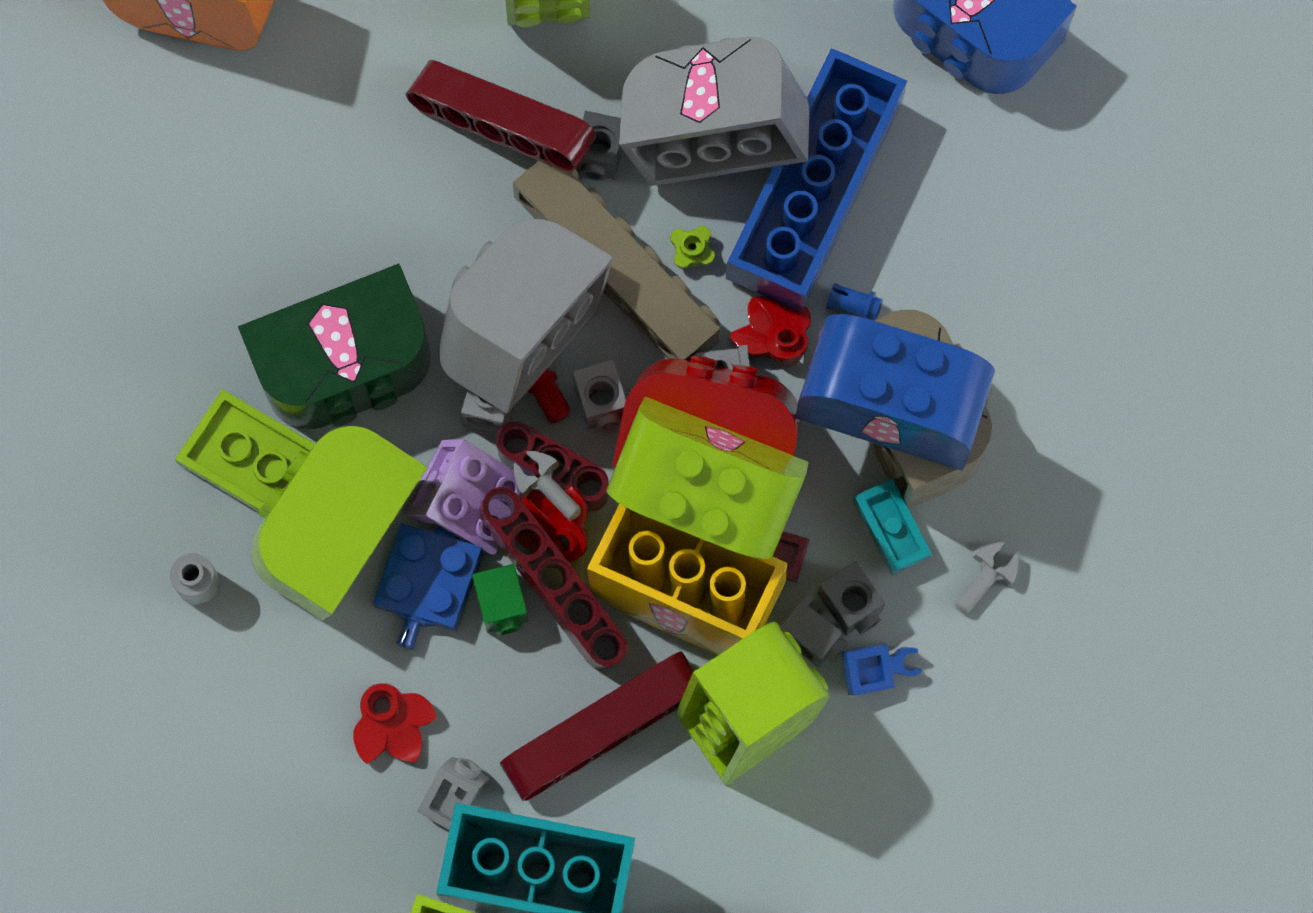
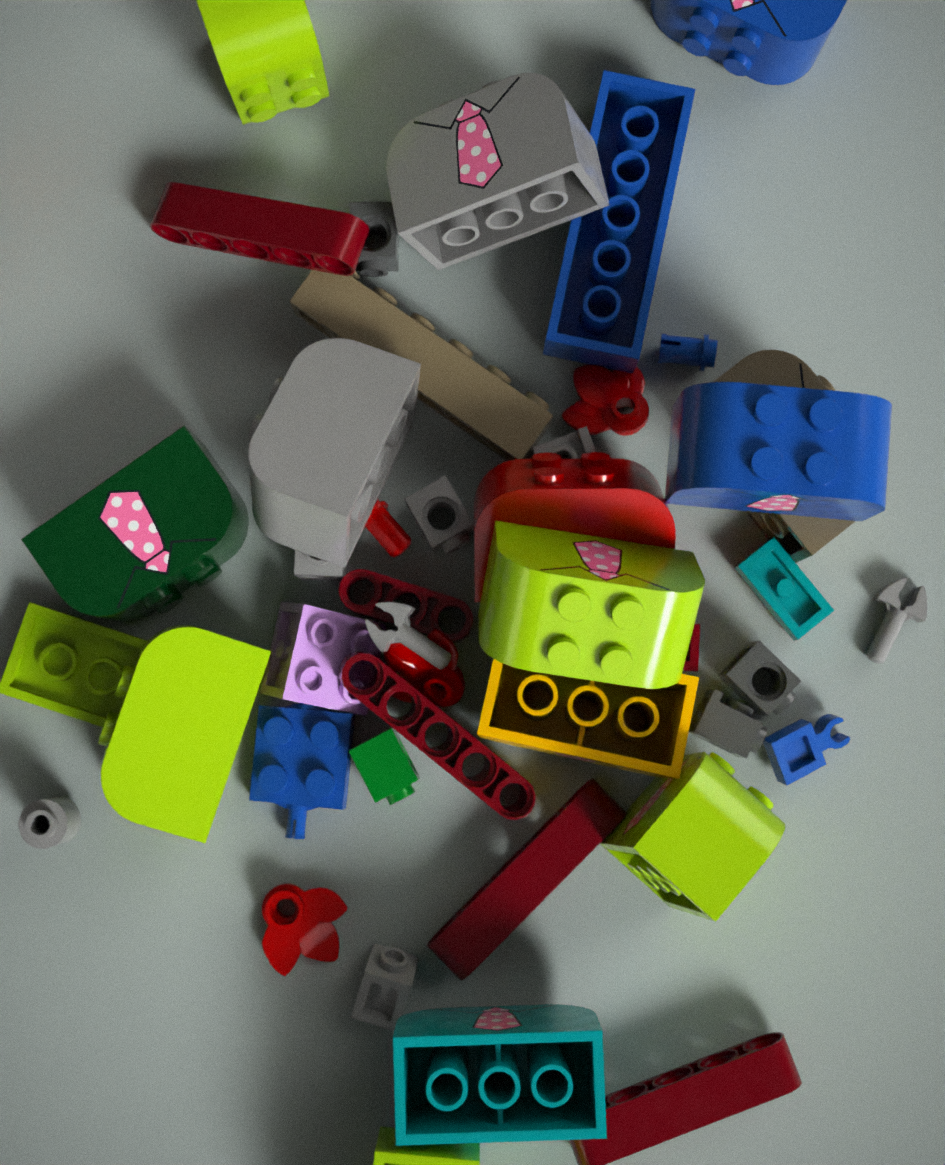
camera: 10 degrees left, 10 degrees up
(692, 258) = (494, 340): lime plate -> none

